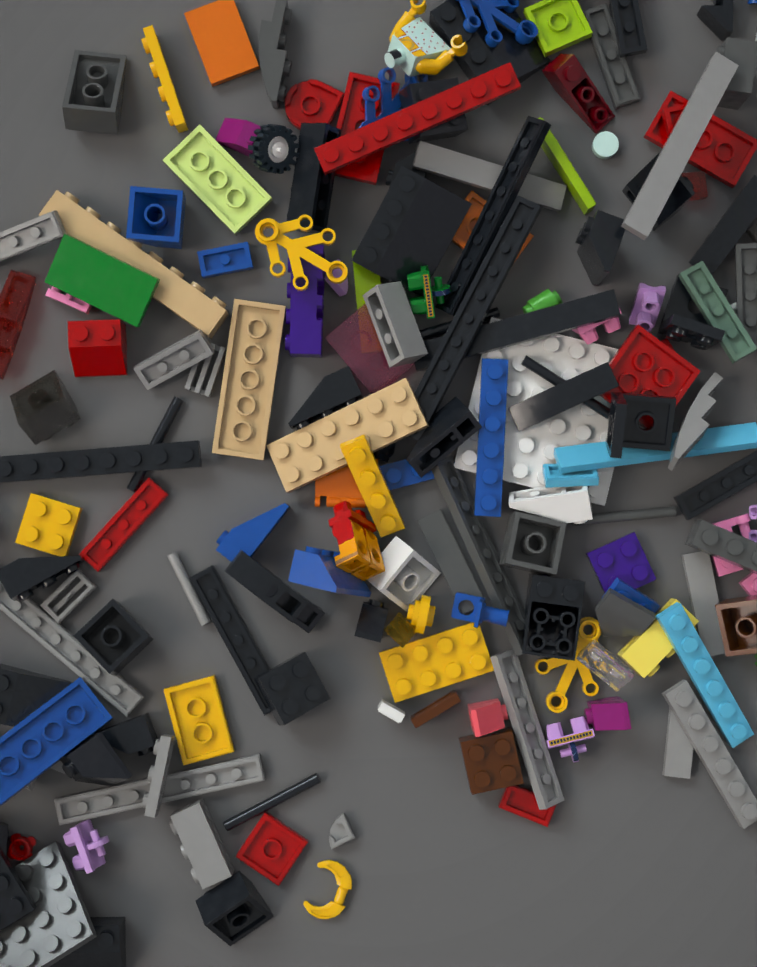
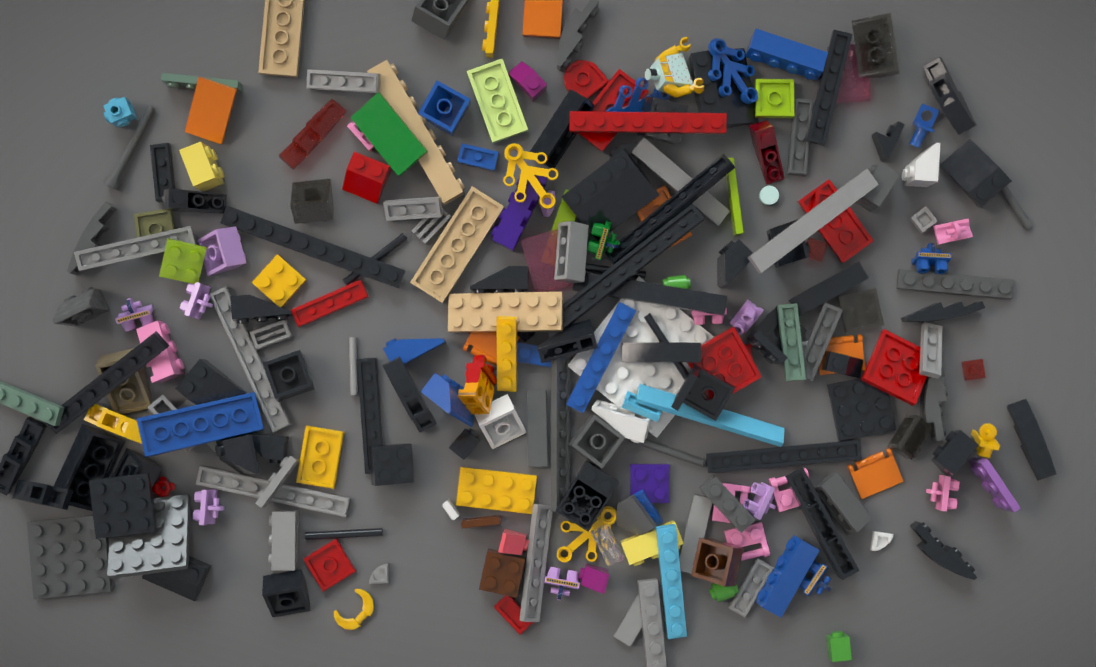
camera: 20 degrees right, 0 degrees up
(273, 148) = (543, 98): black wheel -> none
(400, 630) = (482, 458): clear yellow tile -> none
(421, 614) = (500, 454): yellow plate -> none
(481, 611) = (541, 471): blue bracket -> none
(694, 425) = (739, 411): light grey slope -> none

